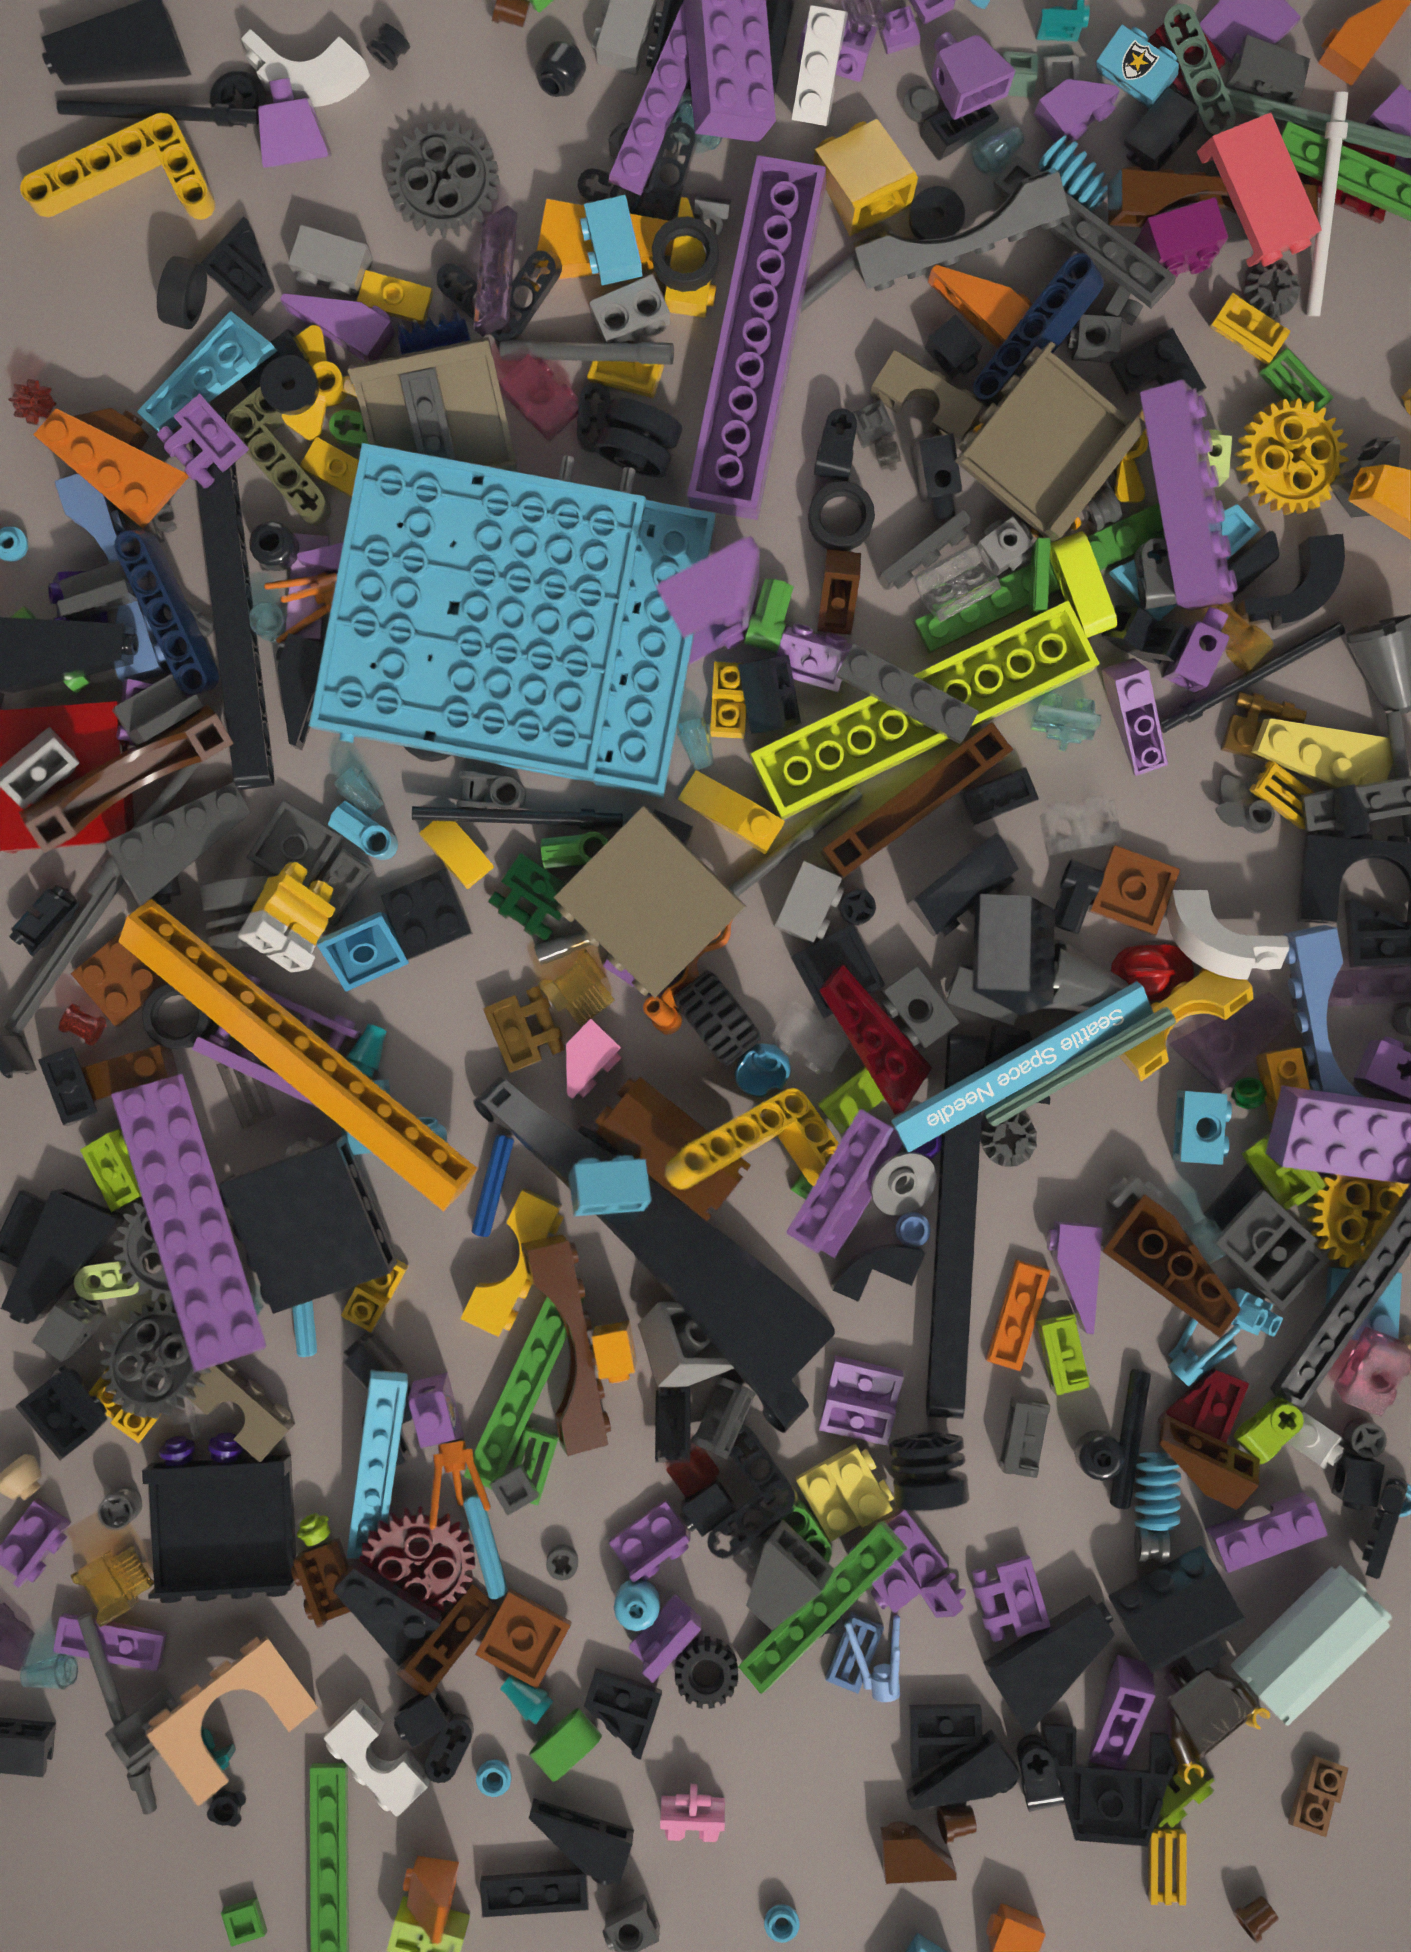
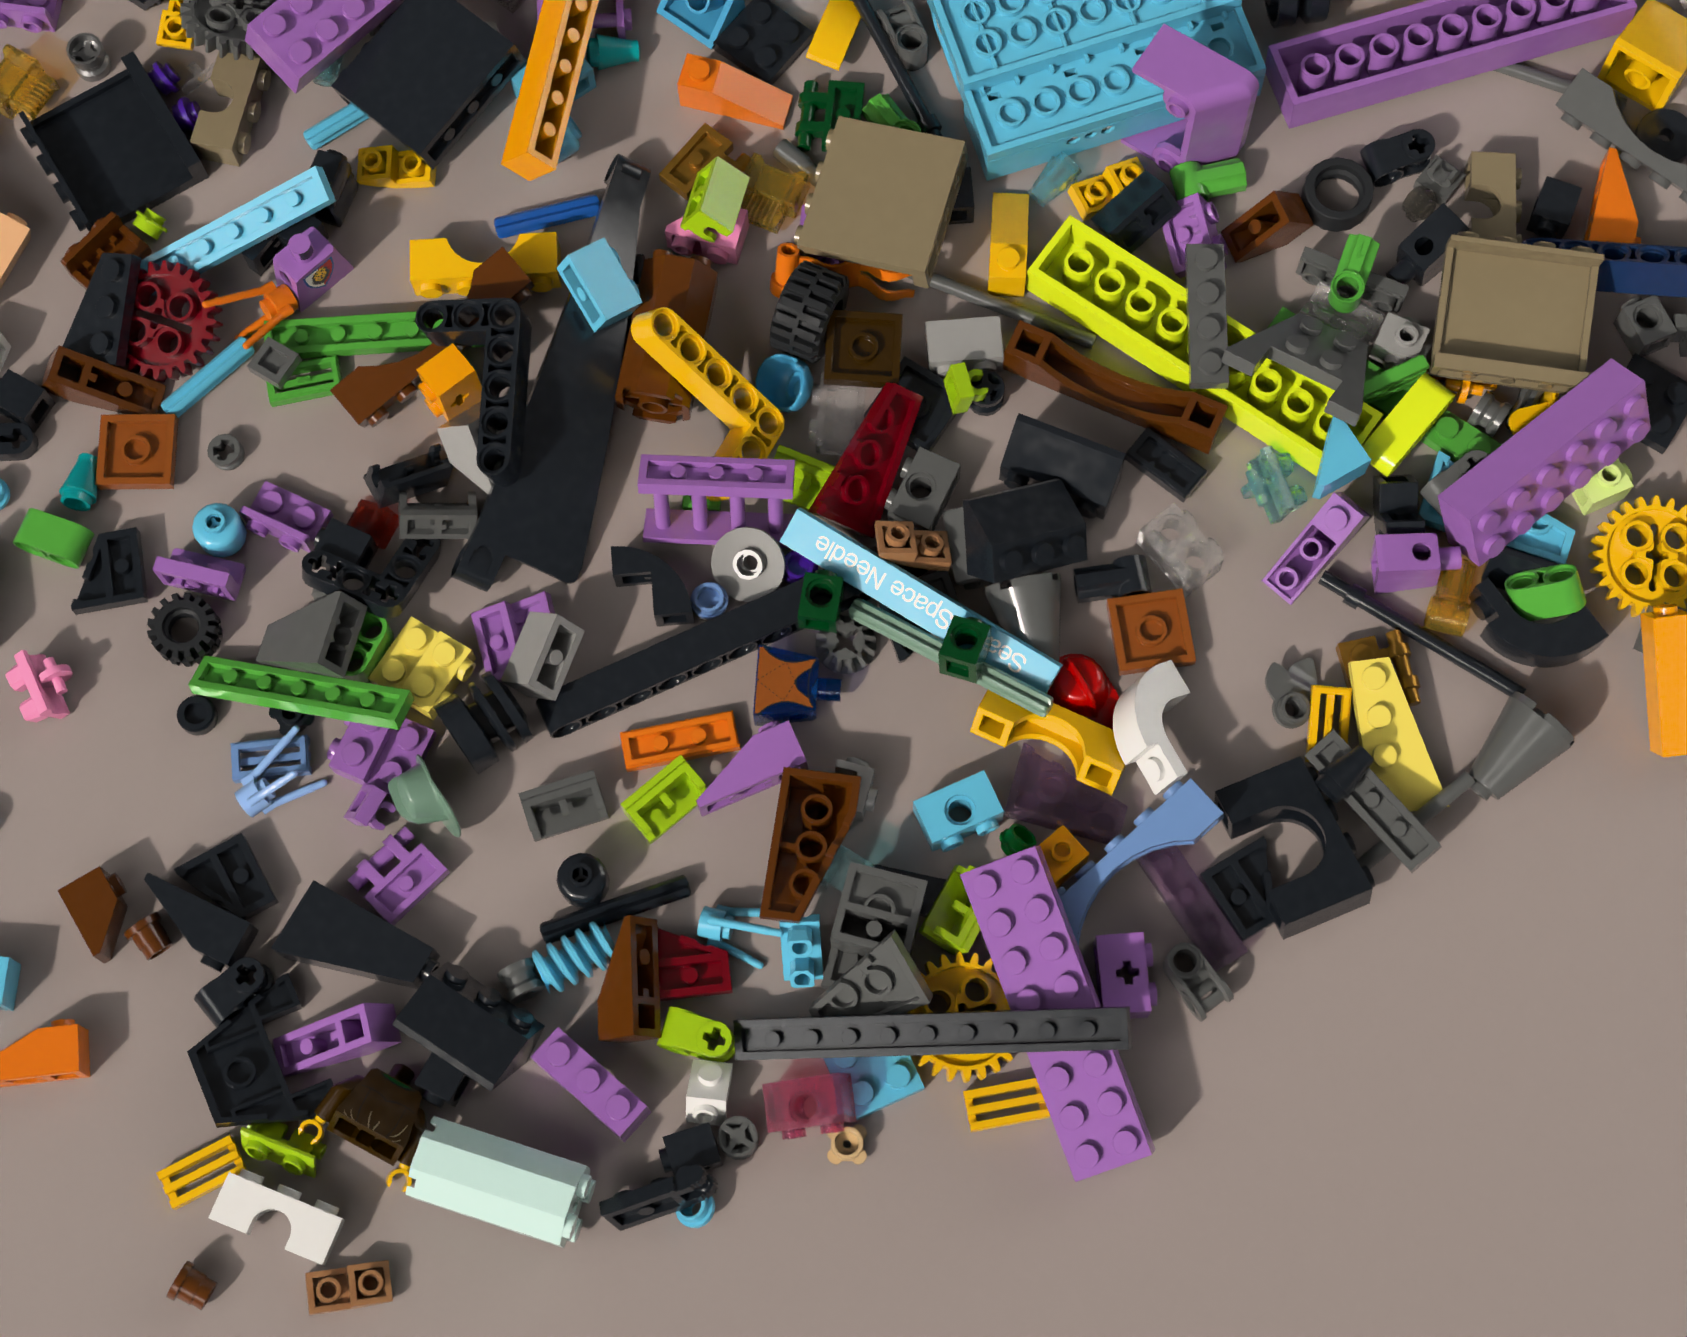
camera: 65 degrees right, 15 degrees down
(466, 968) = (730, 92): none -> orange slope
(571, 1042) = (715, 200): none -> lime hinge
(646, 1318) = (496, 374): none -> black beam
(776, 990) = (863, 349): none -> dark brown tile
(784, 1695) = (197, 715): none -> black tile
(853, 930) = (959, 387): none -> lime tile
(902, 1396) = (542, 655): none -> light grey brick
(929, 547) = (1353, 271): none -> bright green piece
(963, 1556) = (420, 799): none -> sand green piece
(970, 1045) = (912, 548): none -> medium nougat slope
(992, 622) = (1313, 351): none -> dark grey wing
(993, 1154) = (821, 616): none -> dark green brick
(1025, 1204) = (790, 686): none -> torso
(1096, 662) = (1341, 459): none -> medium azure slope
(1103, 1066) = (961, 662): none -> dark green brick
(1218, 1841) = (245, 1200): none -> white arch
(1279, 560) = (1546, 592): none -> bright green beam
(1318, 1274) = (877, 984): none -> dark grey wing

